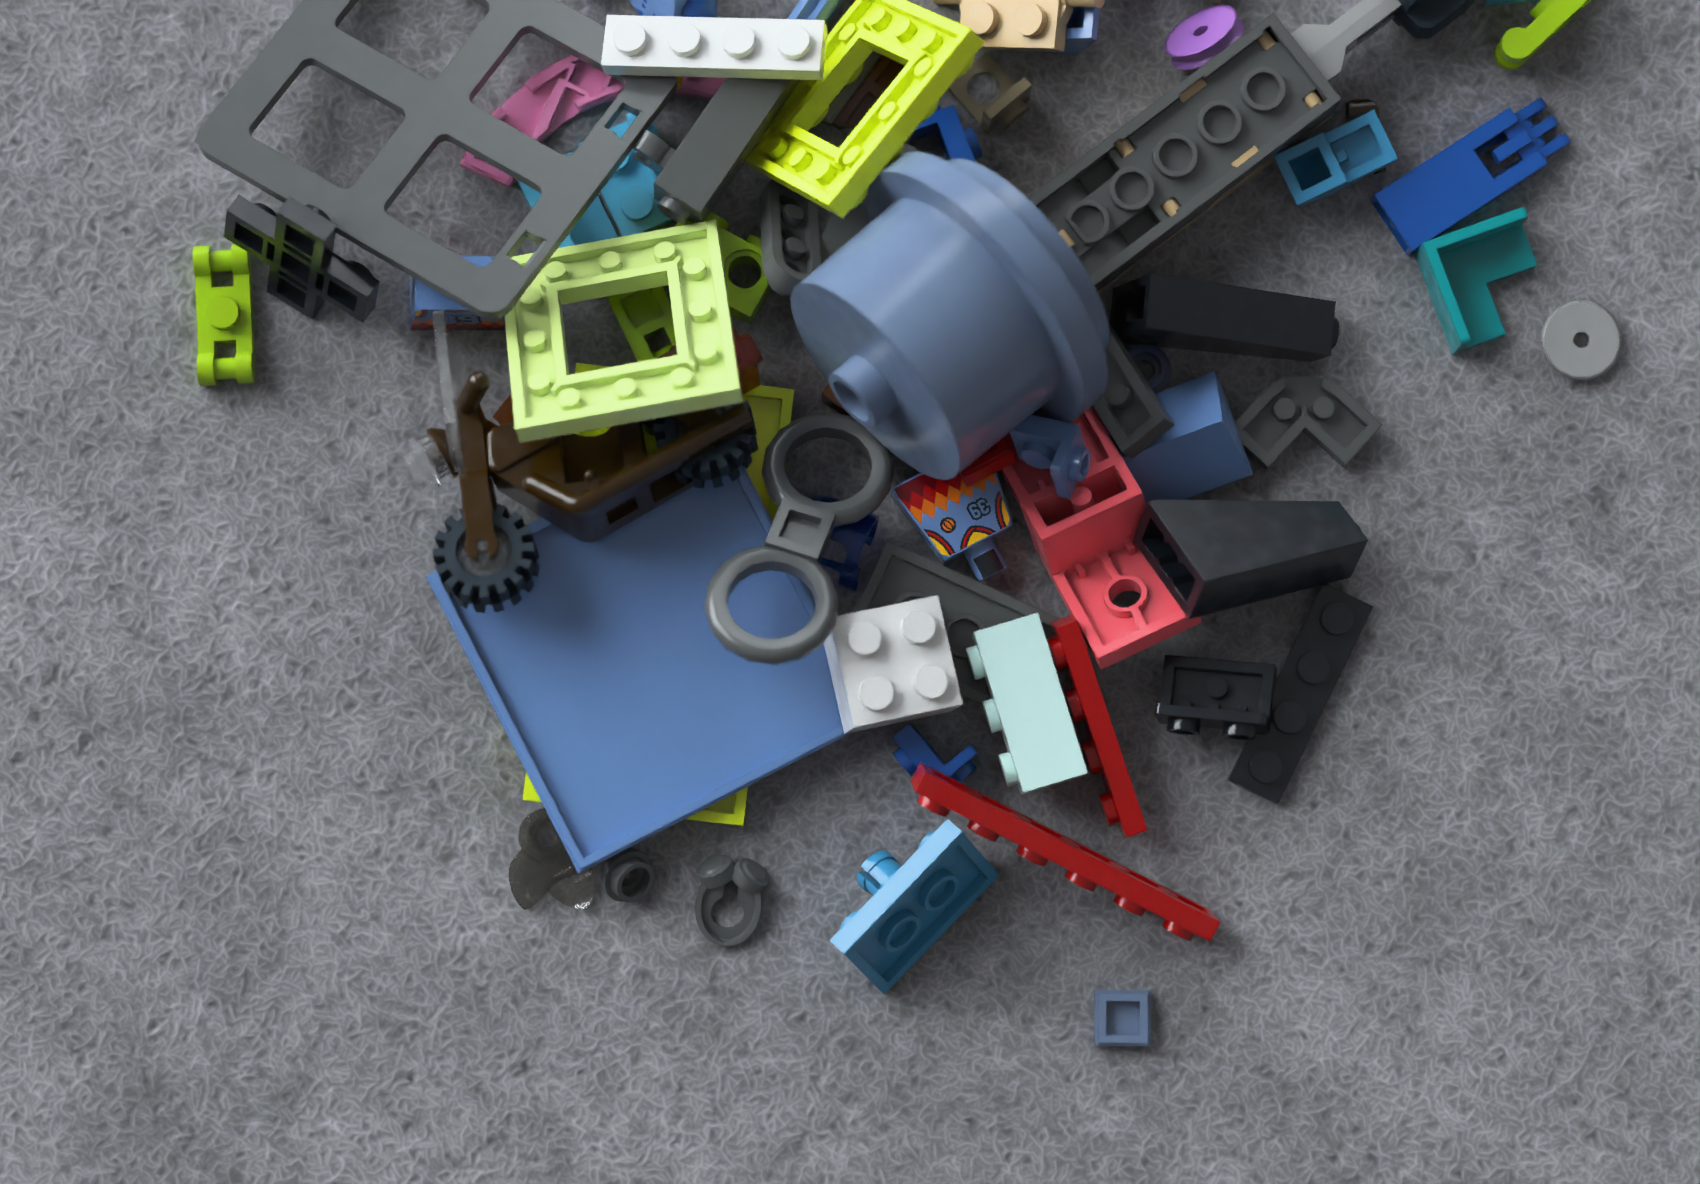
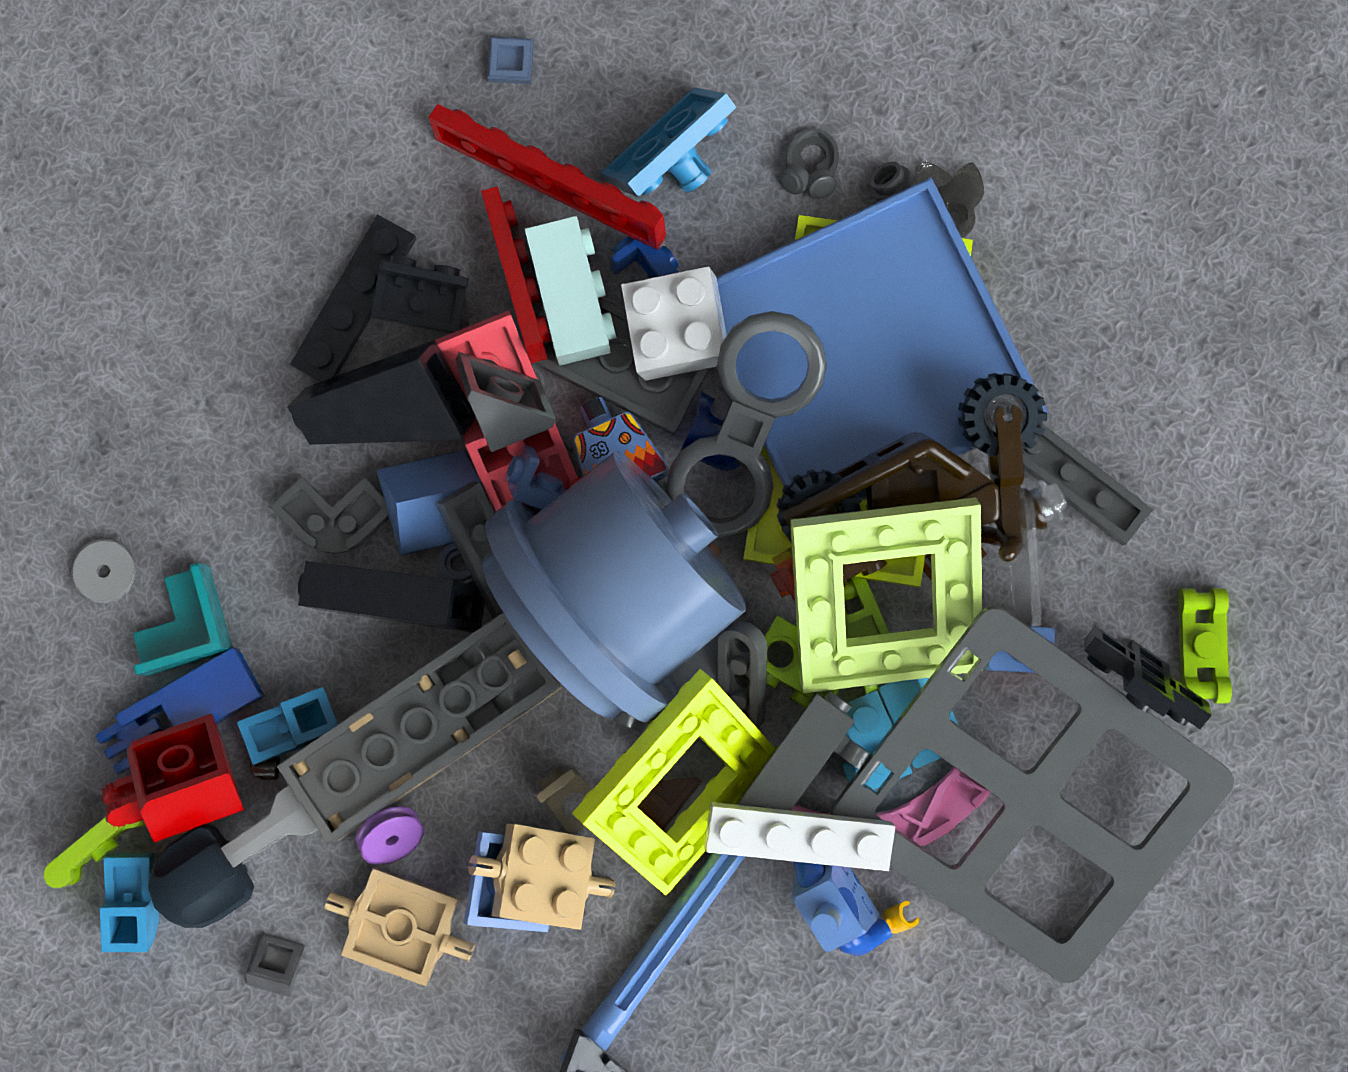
camera: 175 degrees left, 0 degrees up
(371, 500) = (1086, 486): none -> dark grey plate
(952, 137) = (597, 752): blue bracket -> none
(1097, 546) = (504, 401): none -> dark grey slope
(1463, 82) = (175, 781): none -> red hinge

